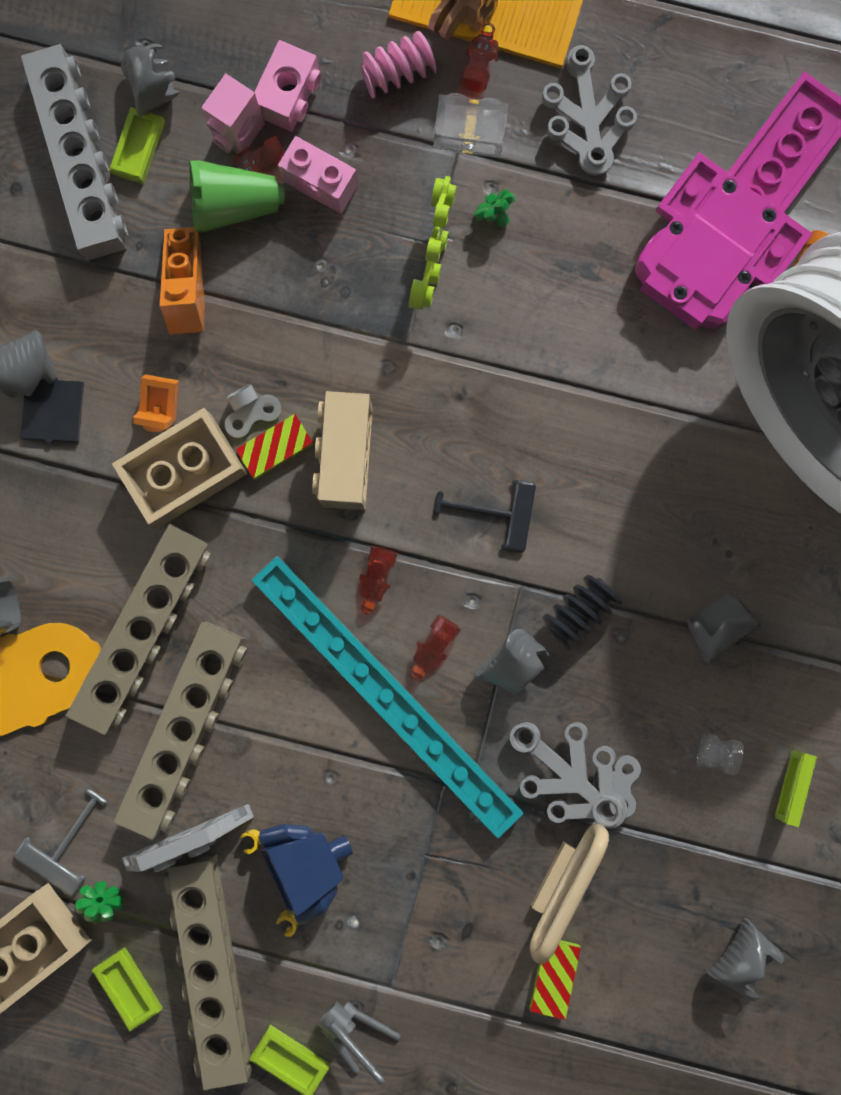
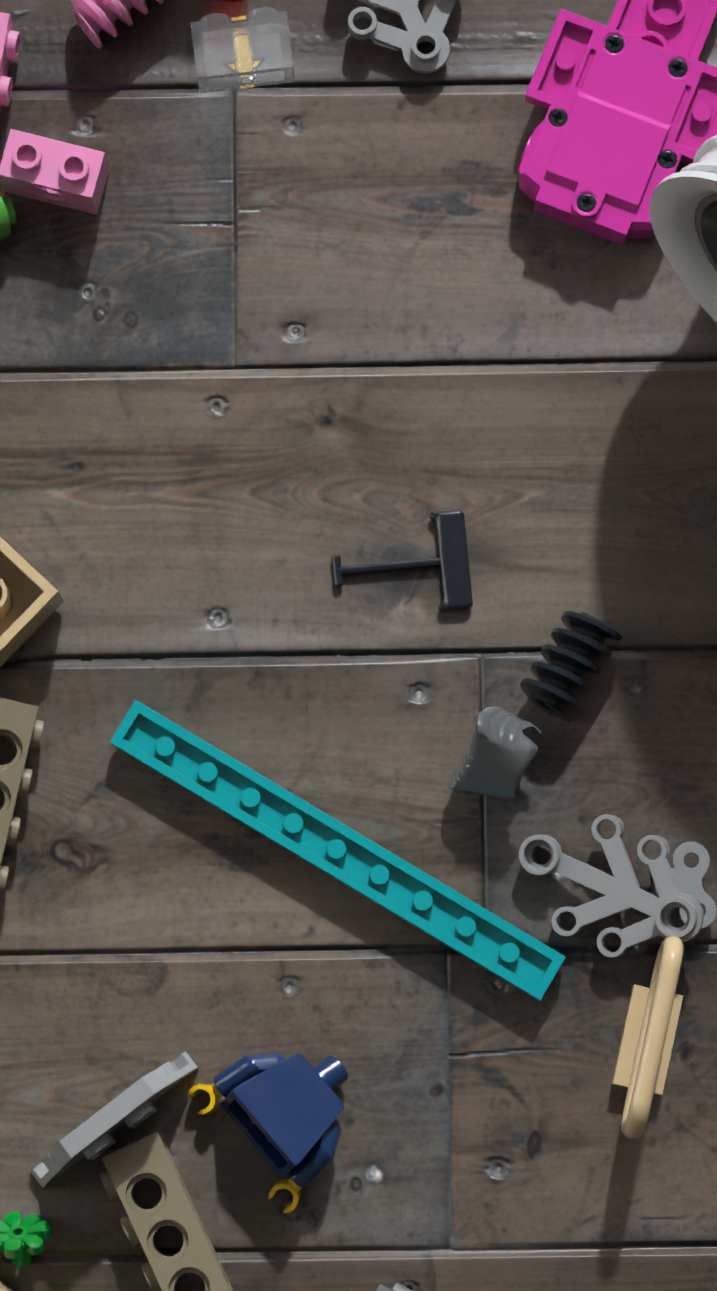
camera: 15 degrees left, 5 degrees down
(136, 810) = (73, 841): dark tan brick -> none
(248, 409) = (42, 513): light grey piece -> none
(274, 446) = (91, 554): tile -> none
(343, 450) = (189, 533): tan brick -> none
(374, 584) = (278, 705): clear red piece -> none
(429, 654) = (380, 777): clear red piece -> none
(442, 199) = (233, 156): lime plant -> none
(495, 208) = (306, 152): green plant -> none
(555, 981) = (670, 1171): tile -> none

